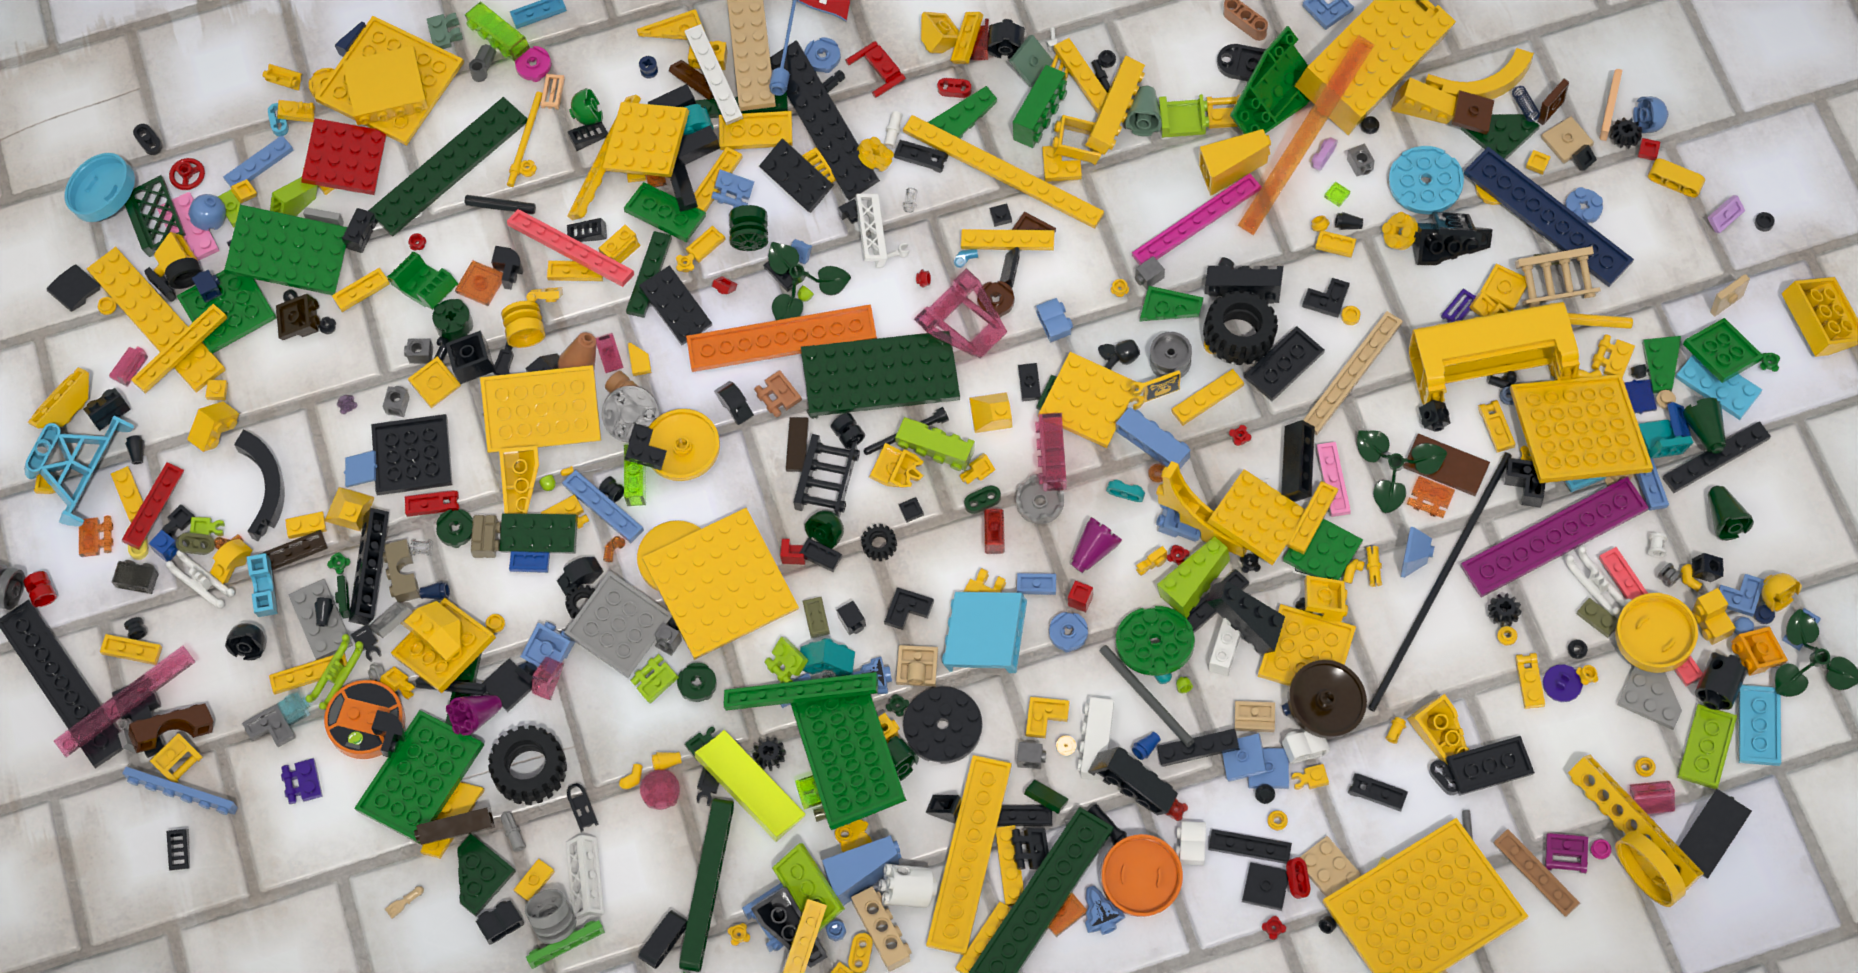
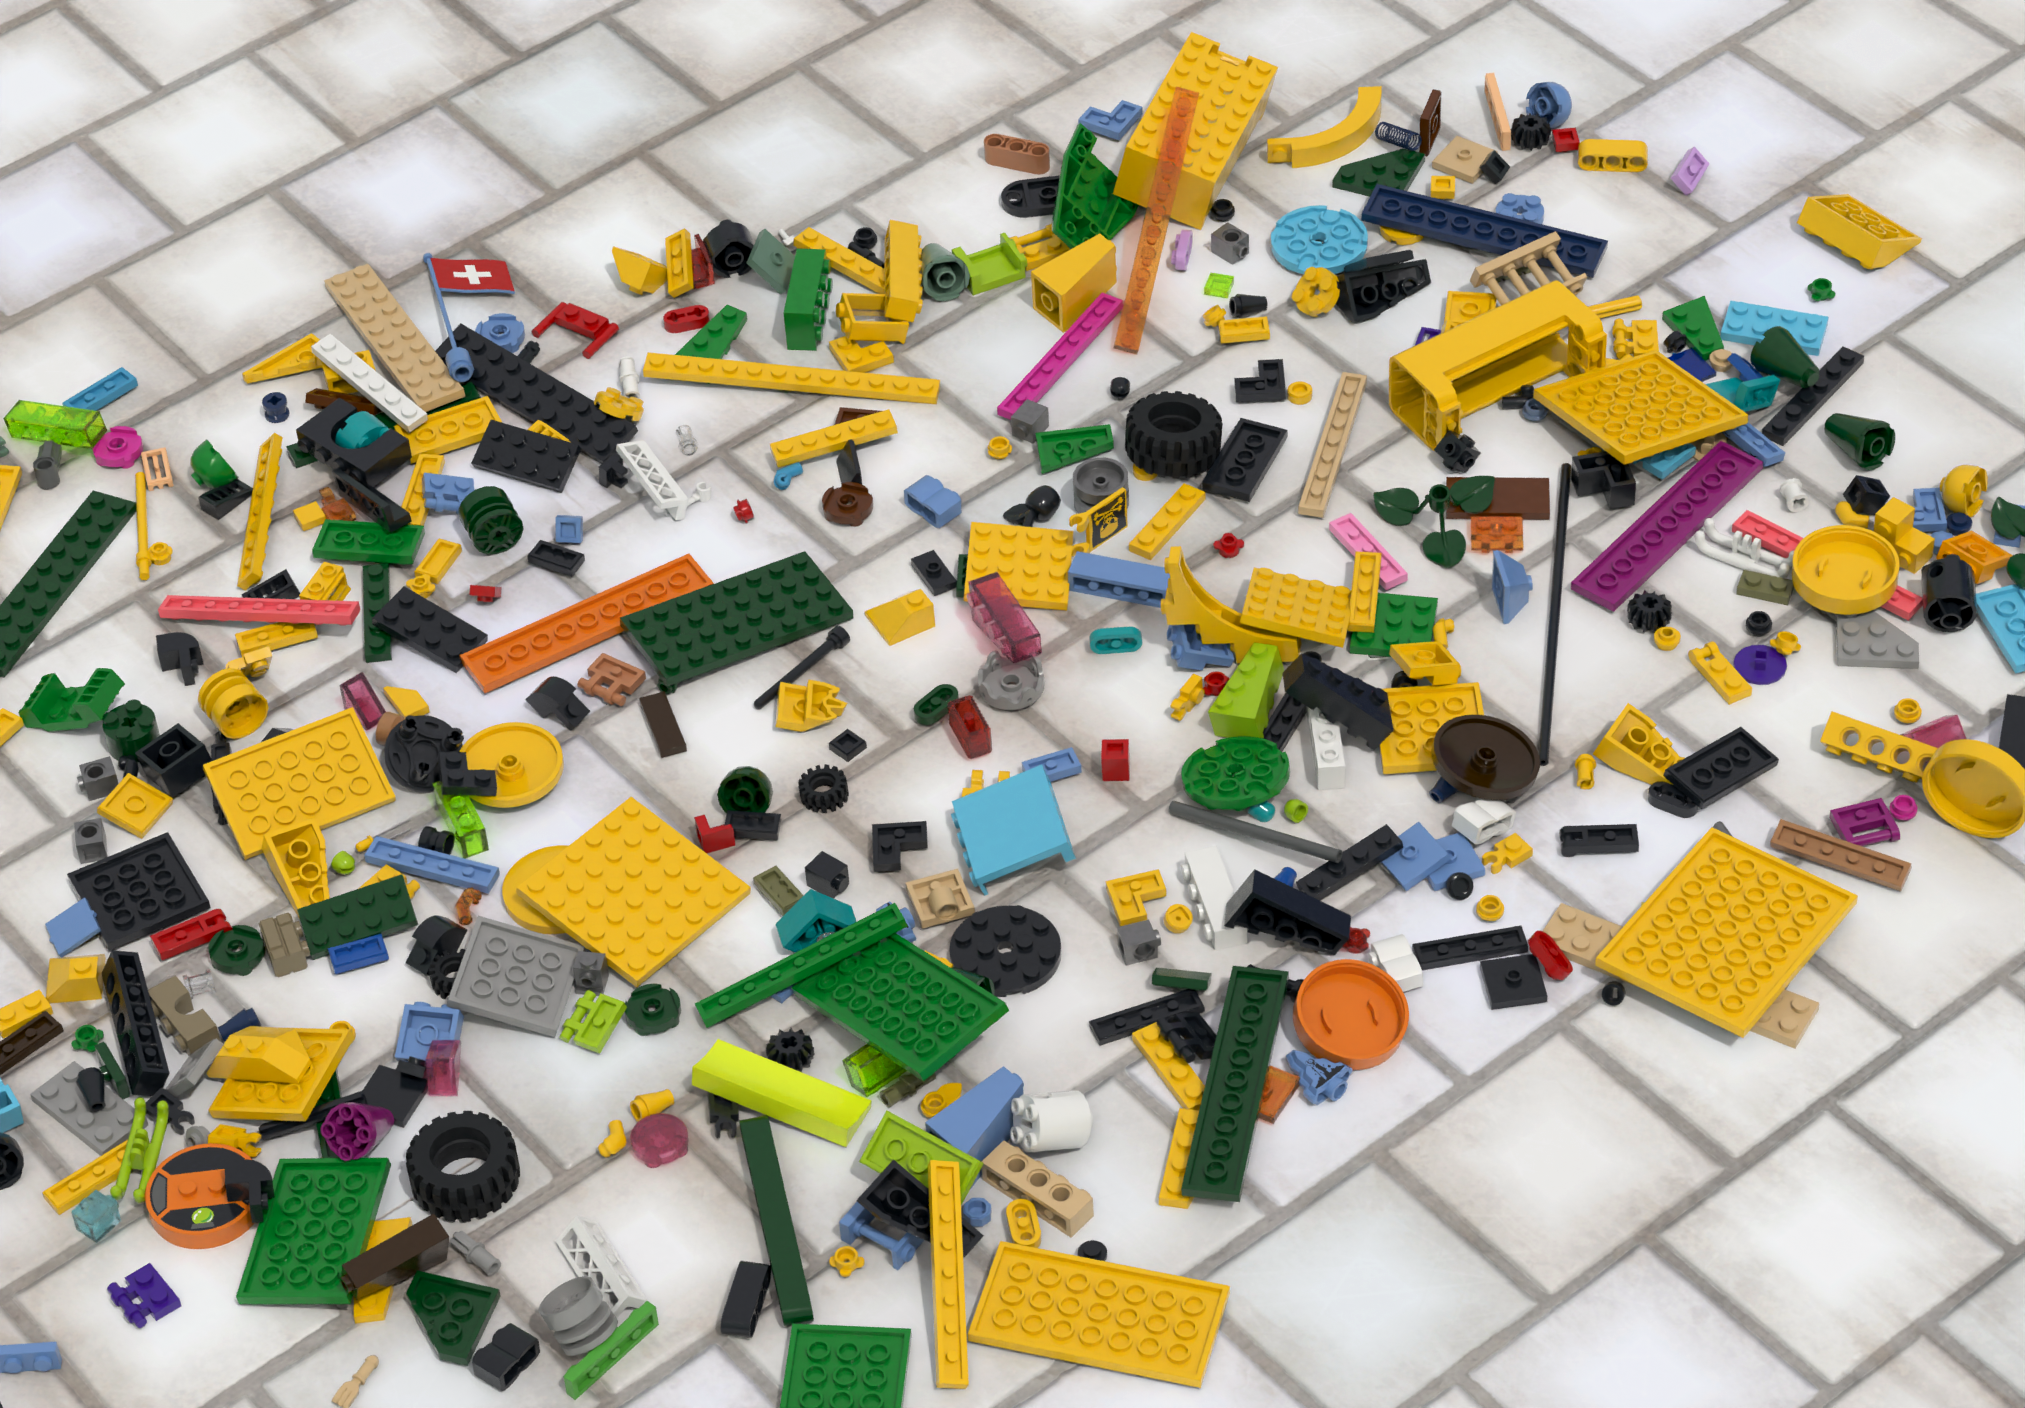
camera: 25 degrees left, 20 degrees down
(269, 721) = (69, 1241): flat silver plate -> none
(346, 403) = (21, 864): clear purple plate -> none
(417, 238) = (41, 667): red plate -> none
(479, 283) = (151, 686): clear orange plate -> none
(499, 204) = (136, 600): black axle -> none
(534, 880) = (530, 1294): yellow plate -> none
(579, 353) = (328, 697): nougat cone -> none
(581, 802) = (555, 1190): black piece -> none
(646, 139) = (312, 466): yellow plate -> none
(699, 741) = (682, 1075): dark green plate -> none
(786, 258) = (551, 538): dark green plant -> none
(790, 657) = (763, 935): lime plate -> none
(805, 294) = (596, 569): lime hinge -> none
(811, 464) = (695, 735): black fence -> none
(847, 430) = (724, 686): black wheel -> none
(896, 699) = (937, 945): dark green plate -> none
(920, 155) = (678, 393): black plate -> none
(935, 444) = (848, 660): lime wedge -> none
(944, 807) = (1055, 1031): black slope -> none
(951, 300) = (797, 511): clear pink windscreen -> none
(969, 855) = (1114, 1073): yellow plate -> none
(980, 468) = (916, 673): yellow plate -> none
(1000, 215) = (809, 421): black plate -> none
(1068, 642) = (1118, 814): medium blue plate -> none
(1094, 545) = (1106, 699): magenta cone -> none
(1156, 468) = (1145, 611): clear orange plate -> none
(1254, 716) = (1403, 811): tan plate -> none
(1260, 281) = (1122, 395): black wedge -> none
(1273, 933) = (1547, 1019): red plate -> none
(1298, 461) = (1315, 542): black brick -> none
(1374, 566) = (1466, 619): yellow pin -> none
(1424, 102) = (1276, 167): yellow wedge -> none
(1473, 112) = (1340, 158): reddish brown plate -> none
(1497, 426) = (1537, 442): yellow plate -> none
(1669, 575) = (1825, 516): flat silver wheel -> none
(1707, 747) = (1968, 670): lime tile -> none
(1723, 350) = (1762, 290): green plate -> none
(1729, 295) = (1739, 237): tan plate -> none
(1764, 221) = (1737, 168): black tile -> none

